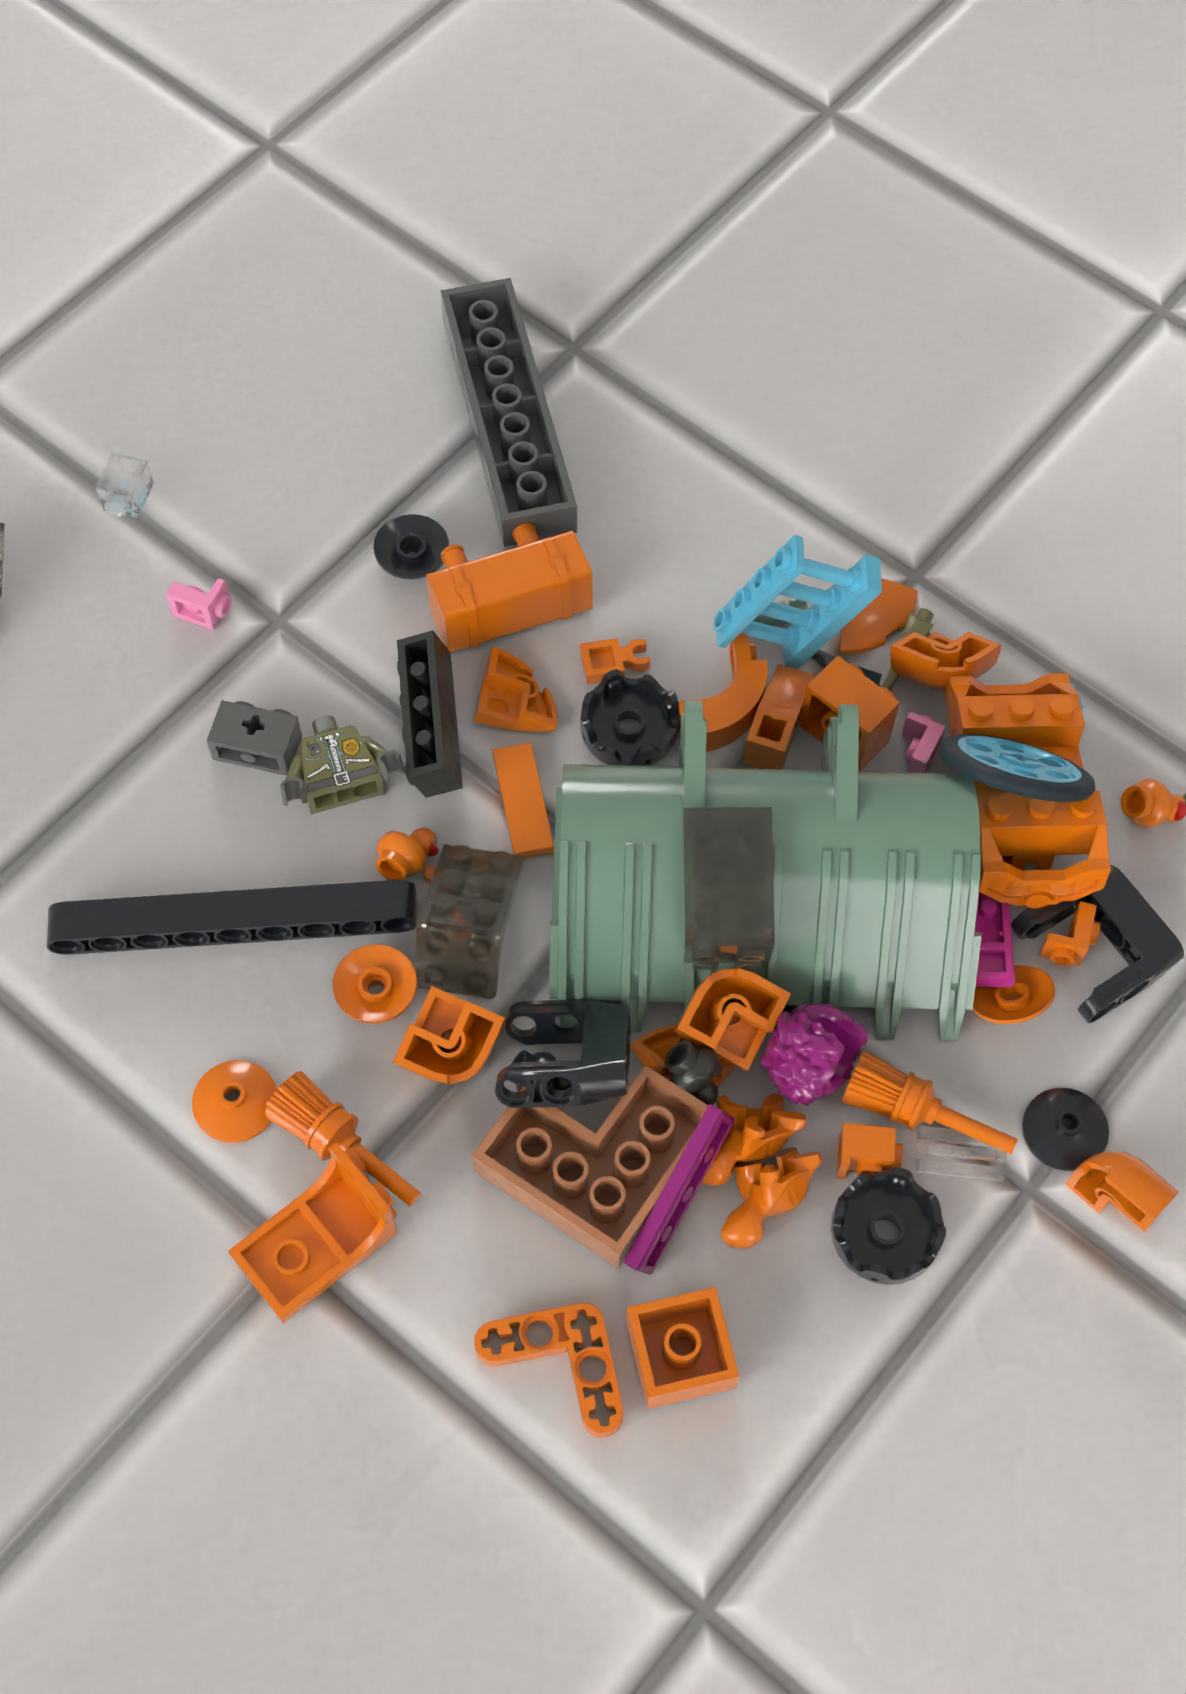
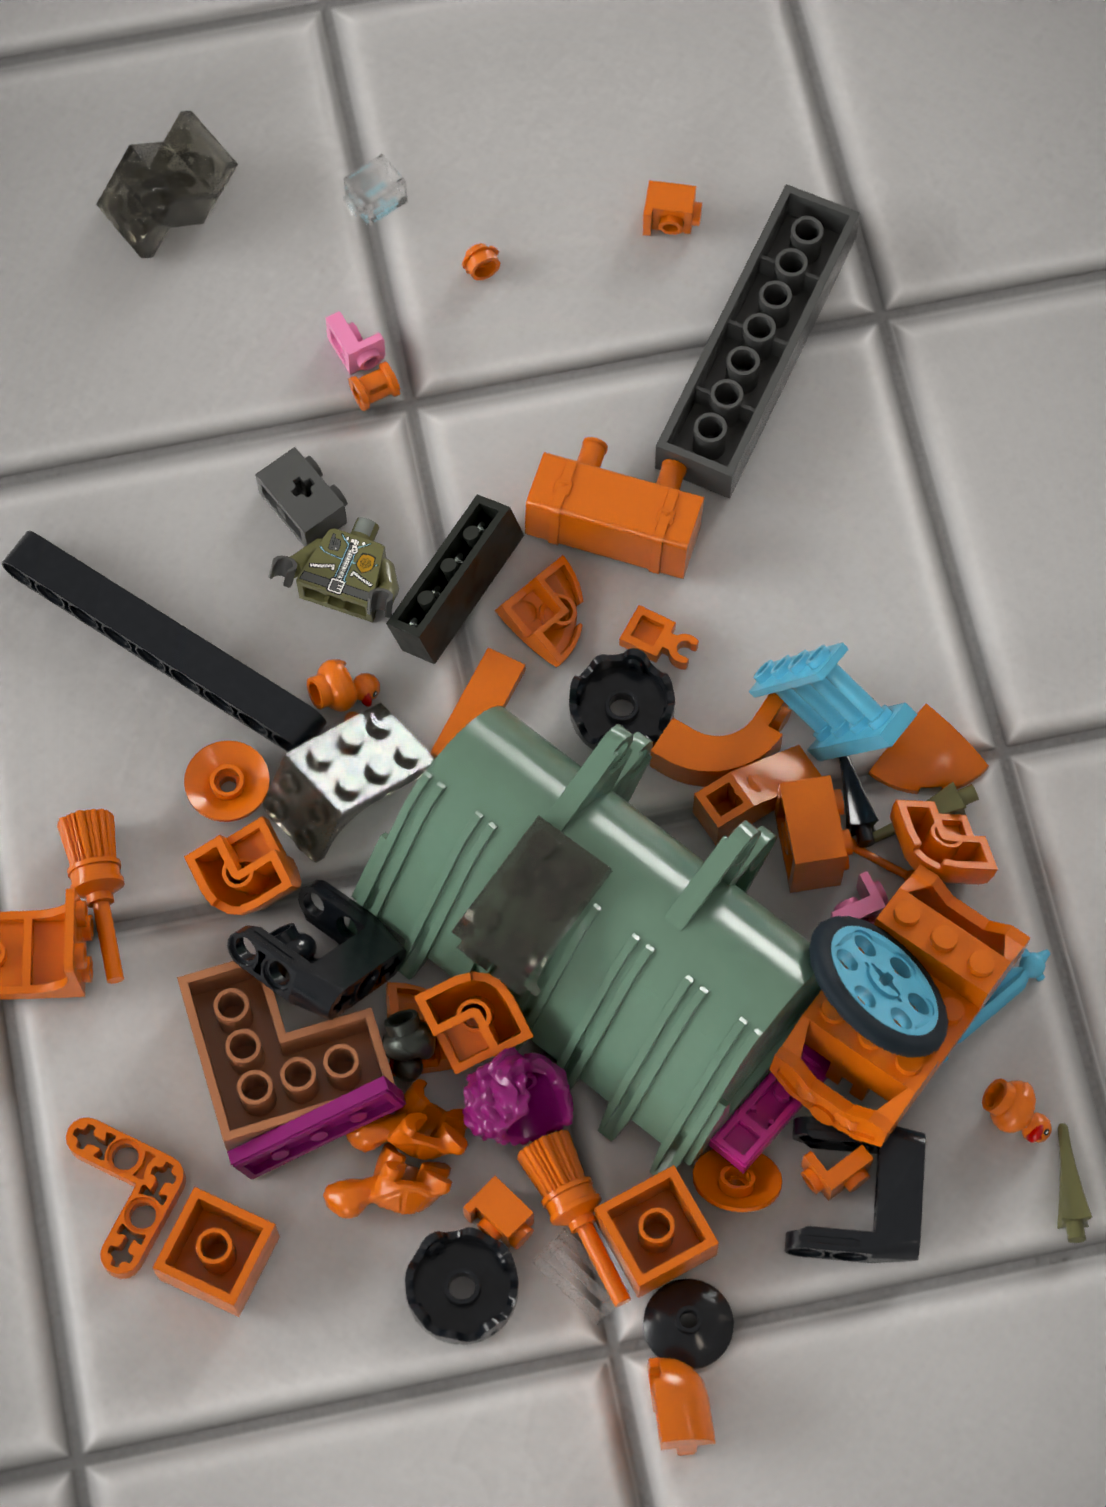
camera: 40 degrees right, 5 degrees up
(237, 1119) = (41, 815): orange dish -> none
(243, 622) = (374, 386): none -> orange bush
(250, 486) = (481, 261): none -> orange plate
(363, 364) = (671, 208): none -> orange brick
(408, 535) = (566, 398): black dish -> none
(934, 701) = (881, 861): none -> orange hinge
(994, 1074) = (656, 1231): none -> orange brick

